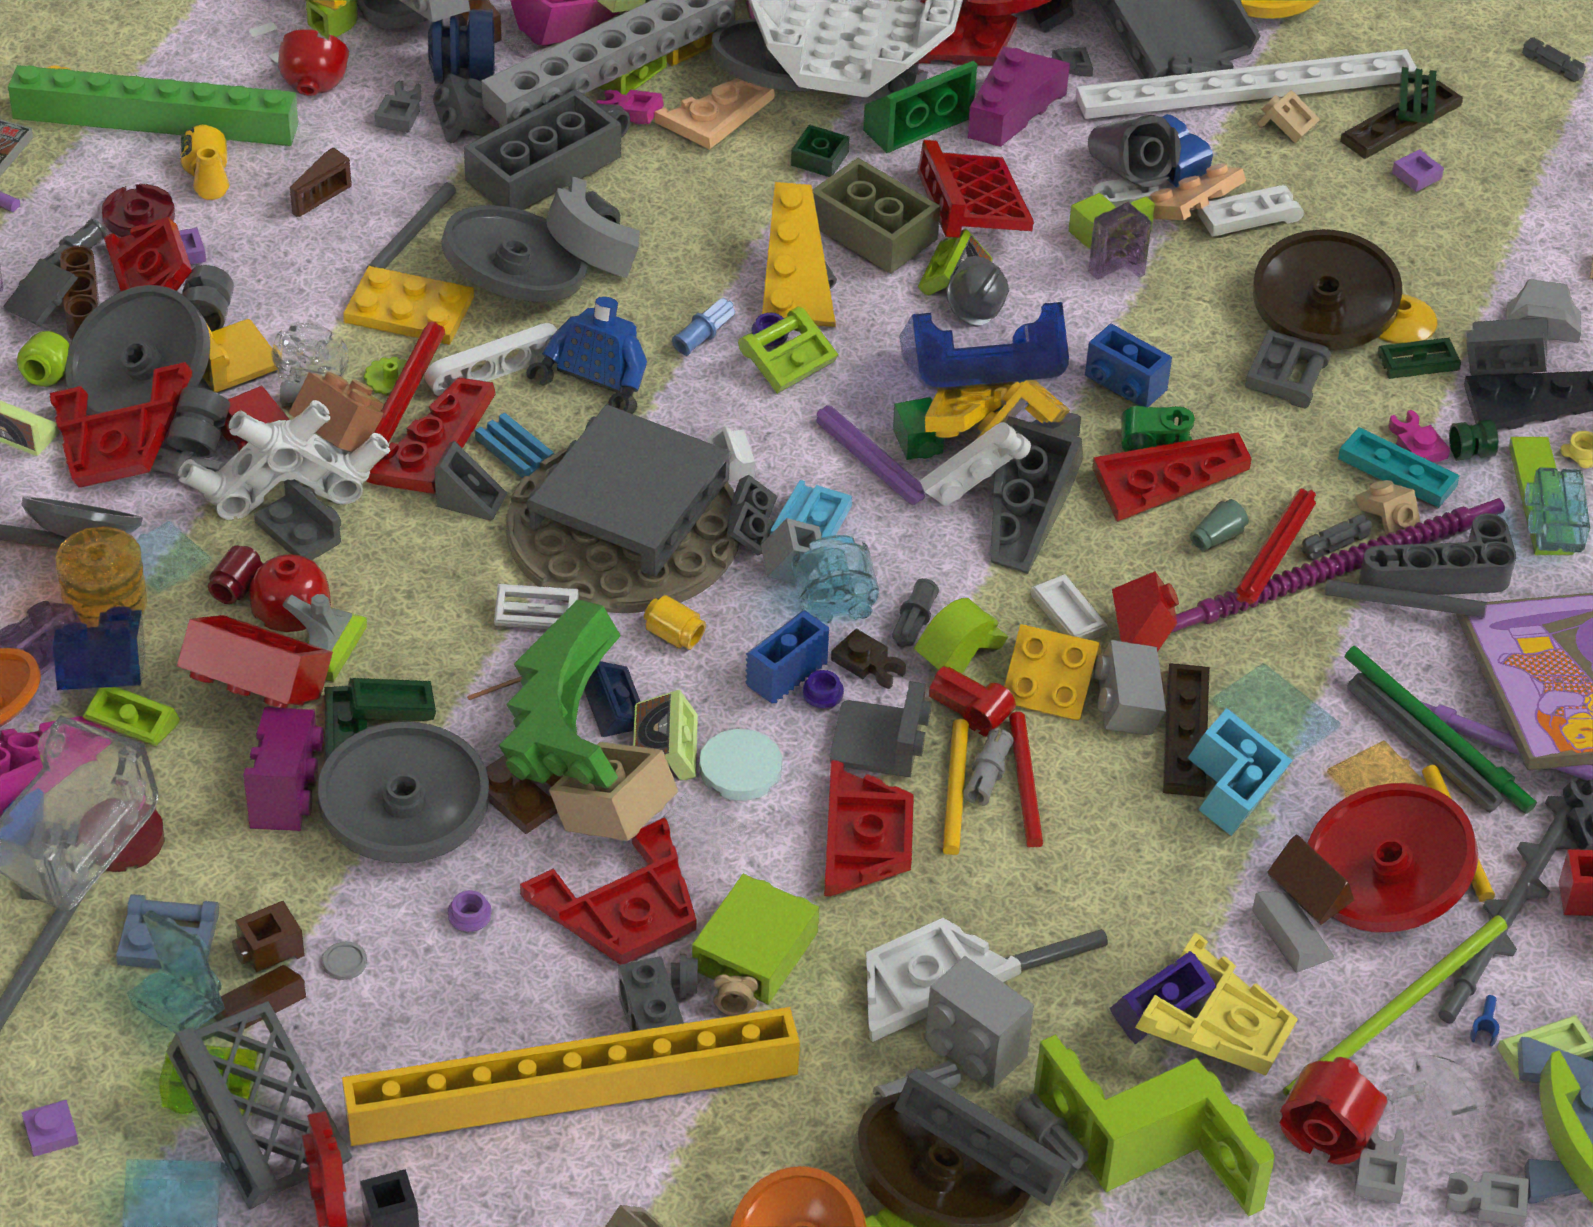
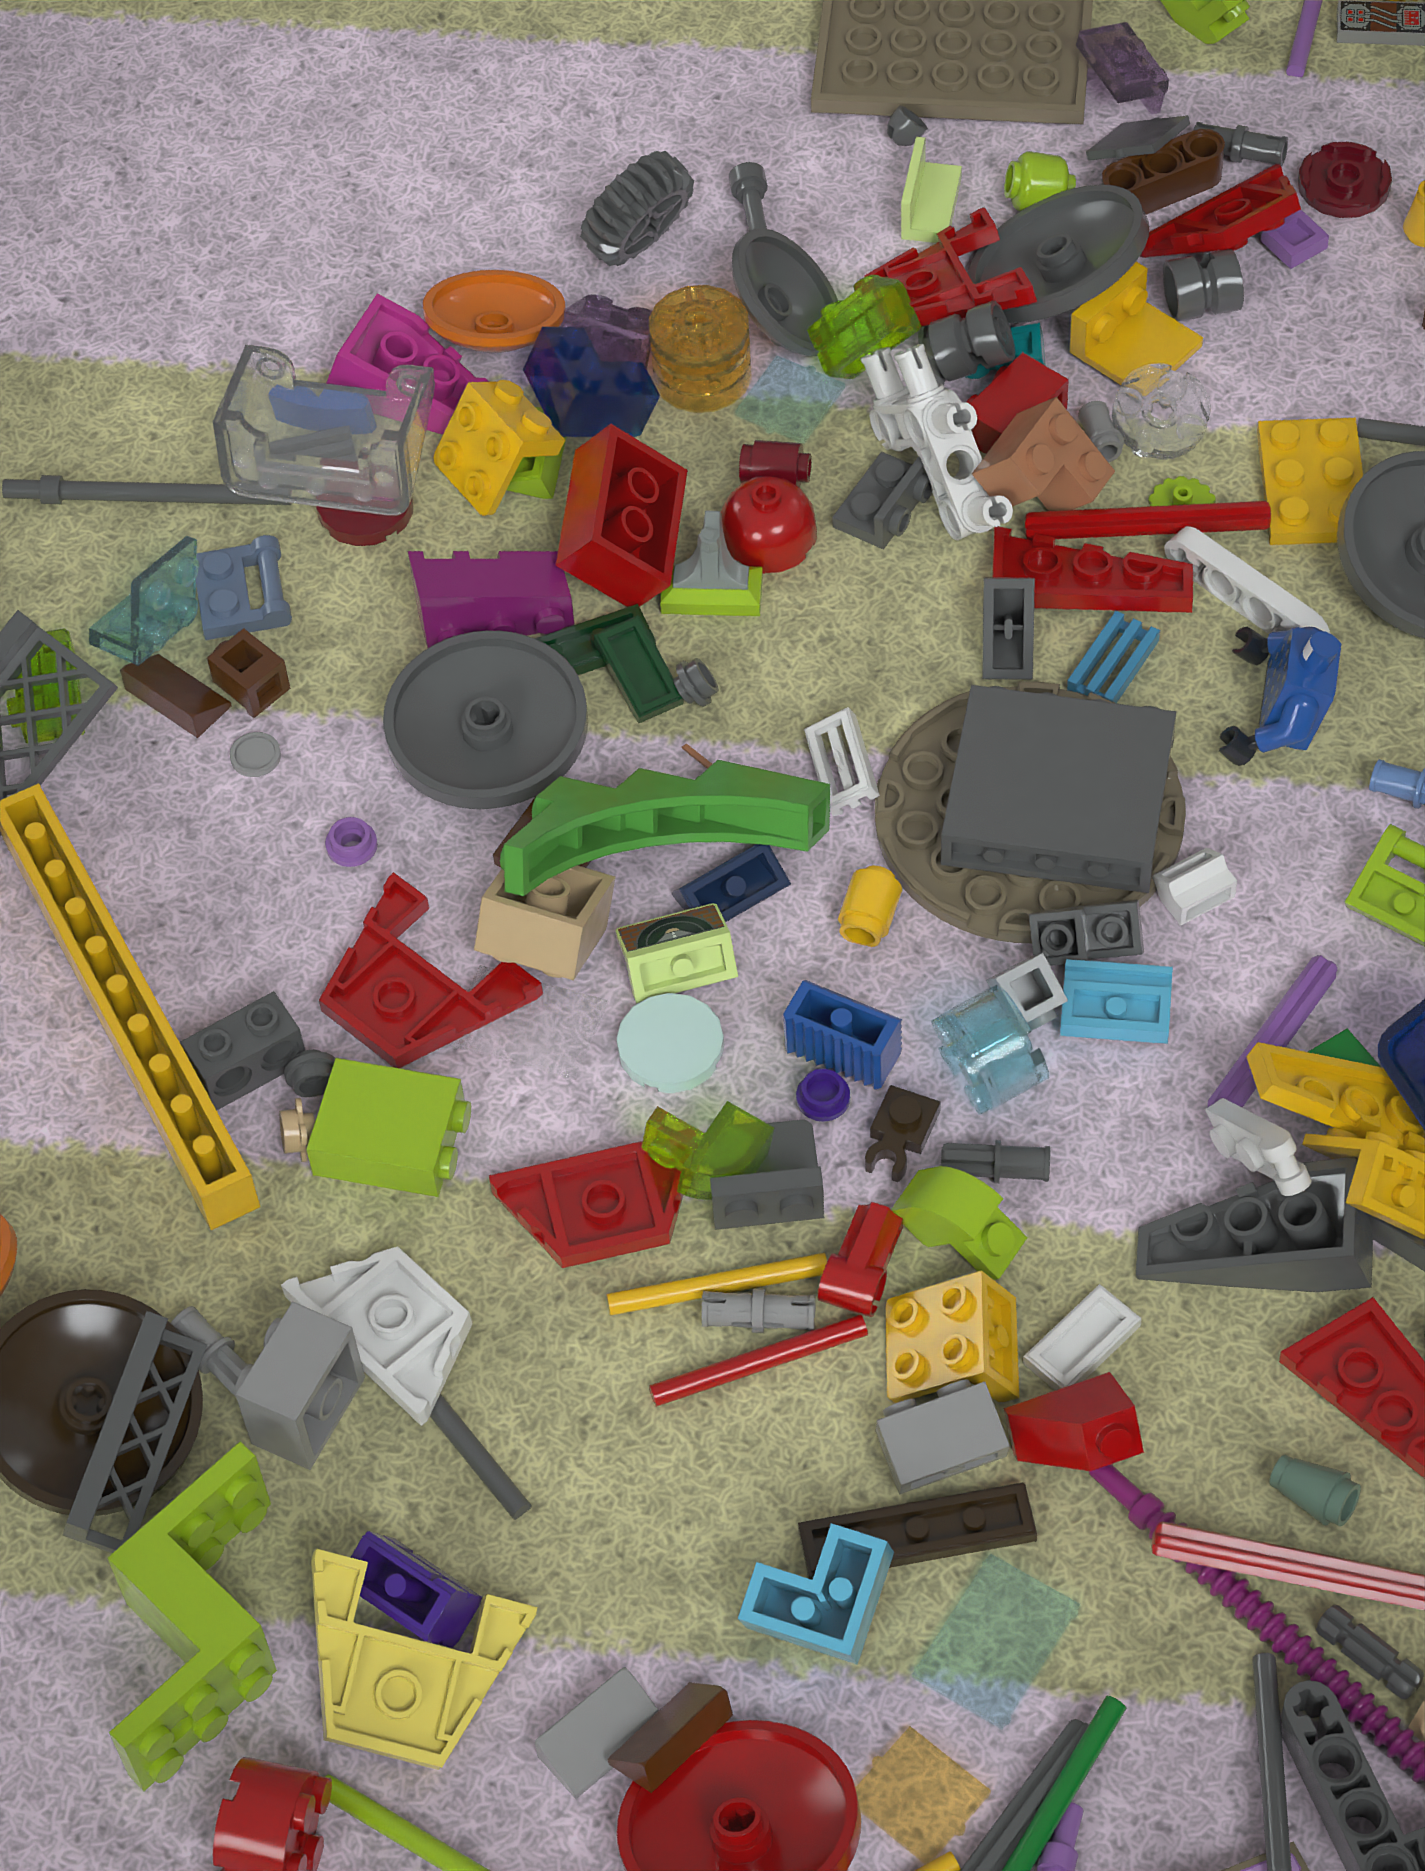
camera: 80 degrees right, 10 degrees up
(133, 711) = (489, 438): none -> yellow bracket
(146, 476) = (862, 323): none -> clear neon green brick
(423, 667) = (695, 682): none -> dark grey plate
(862, 744) = (730, 1147): none -> clear neon green brick

